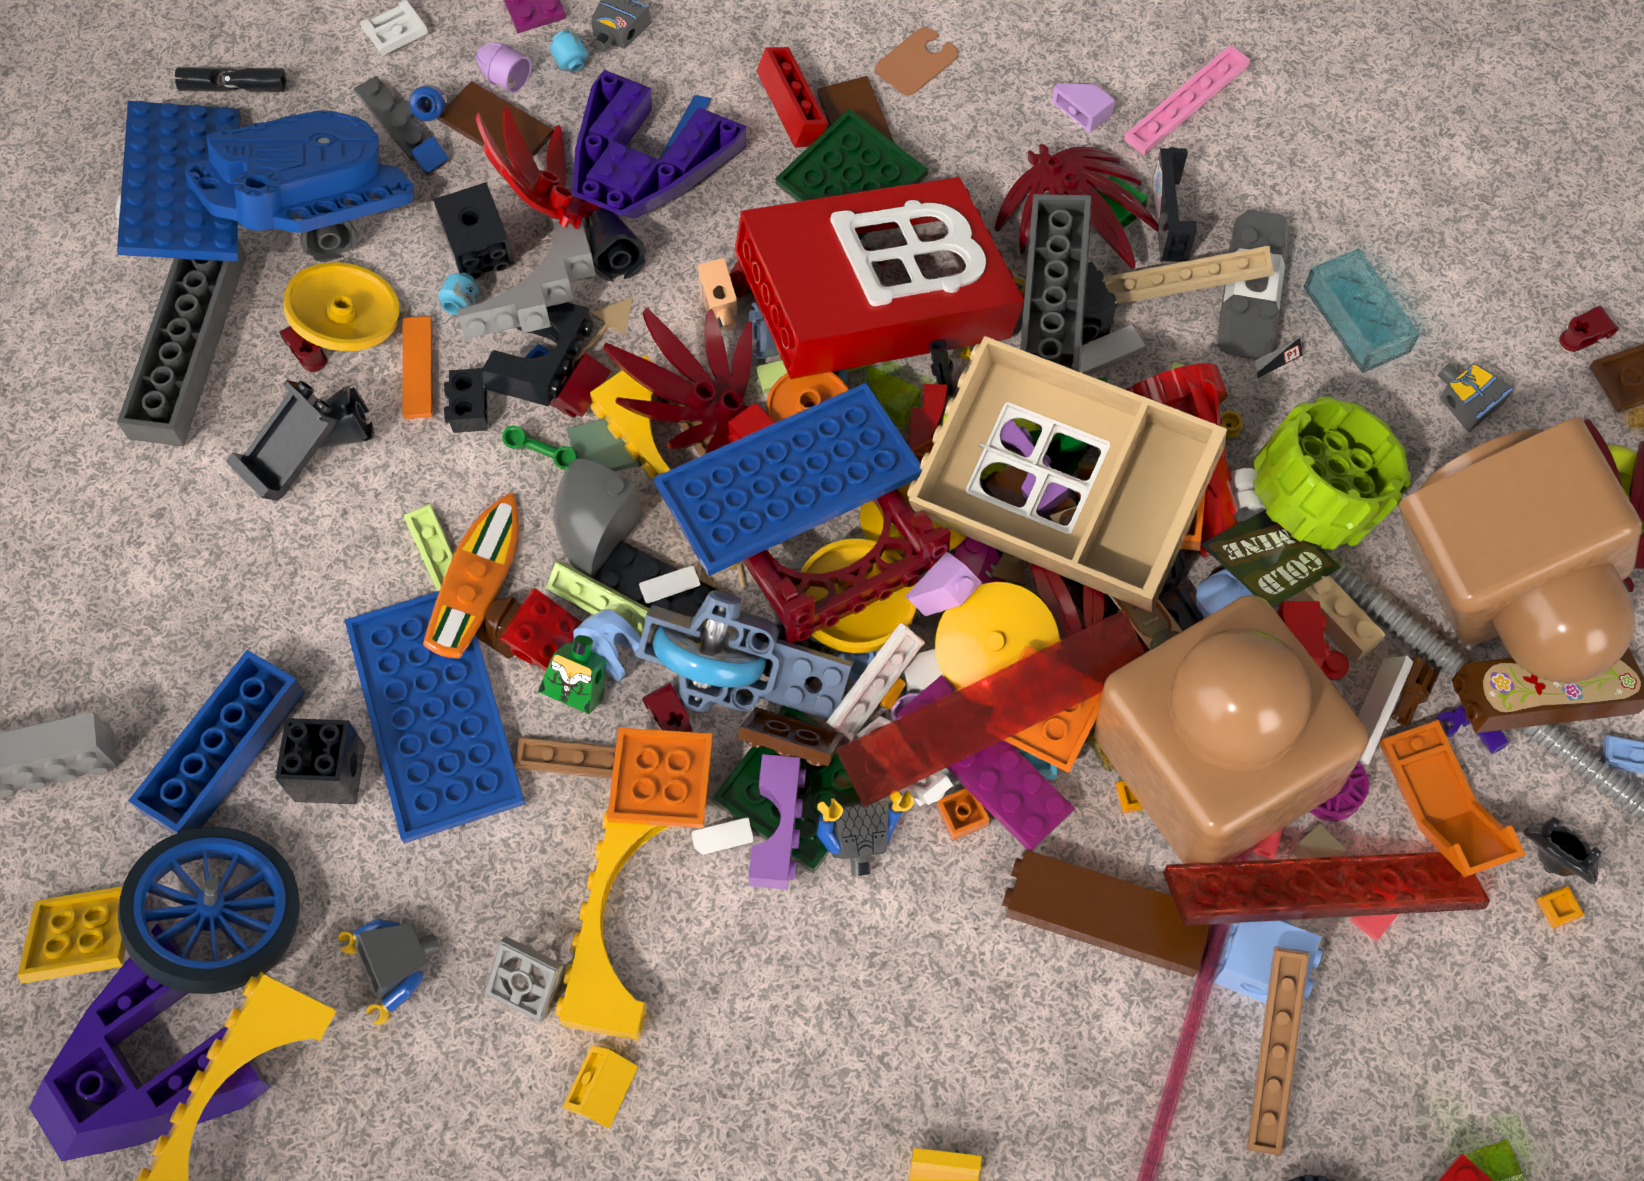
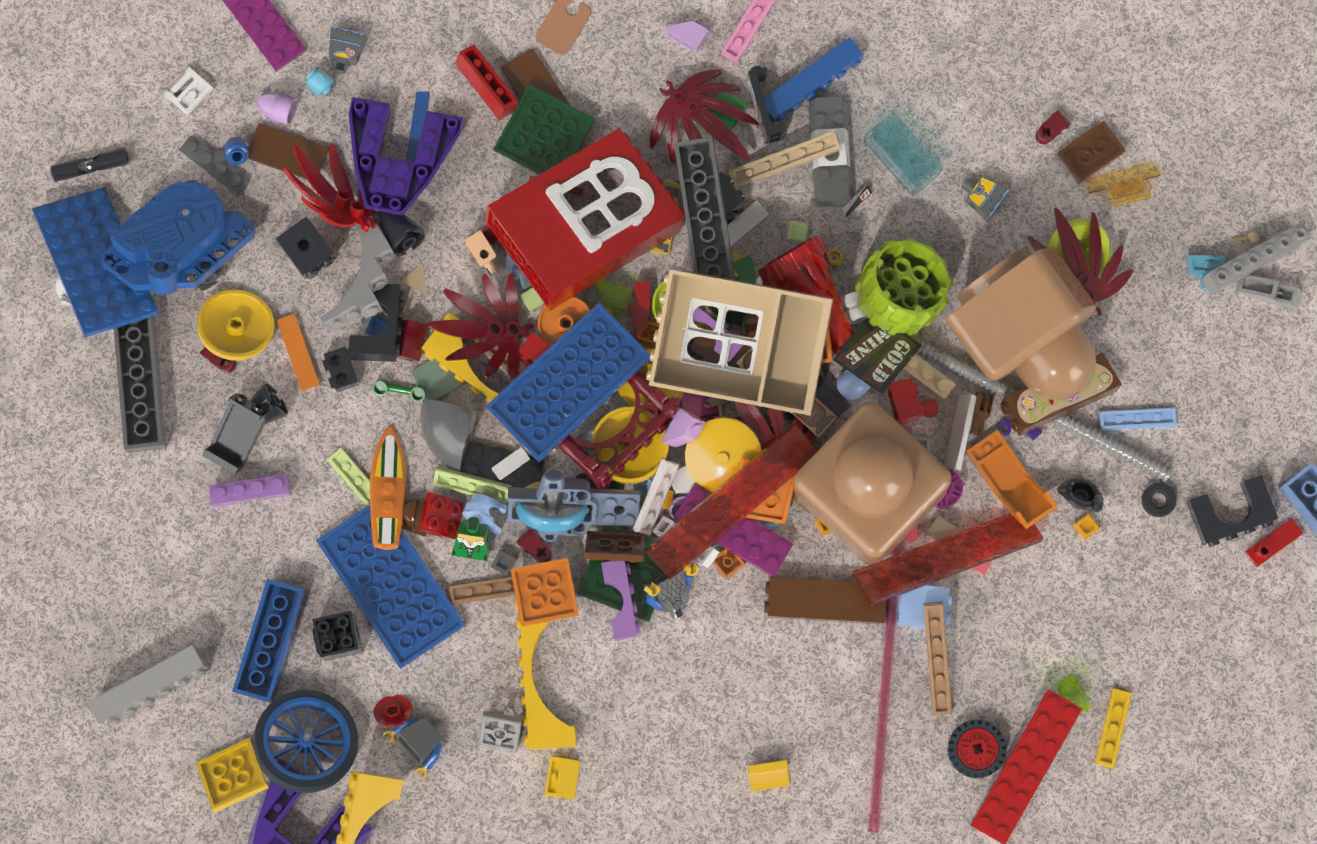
camera: 15 degrees left, 15 degrees up
(305, 528) = (257, 488): none -> medium lavender arch
(366, 902) = (392, 710): none -> red dish
(429, 155) = (250, 190): blue tile -> none
(458, 292) = (308, 293): medium azure head -> none
(610, 720) = (503, 563): none -> dark grey plate
(722, 836) = (590, 614): white sticker -> none
(942, 366) = (642, 268): black pin -> none
(1252, 190) = (812, 79): none -> blue brick

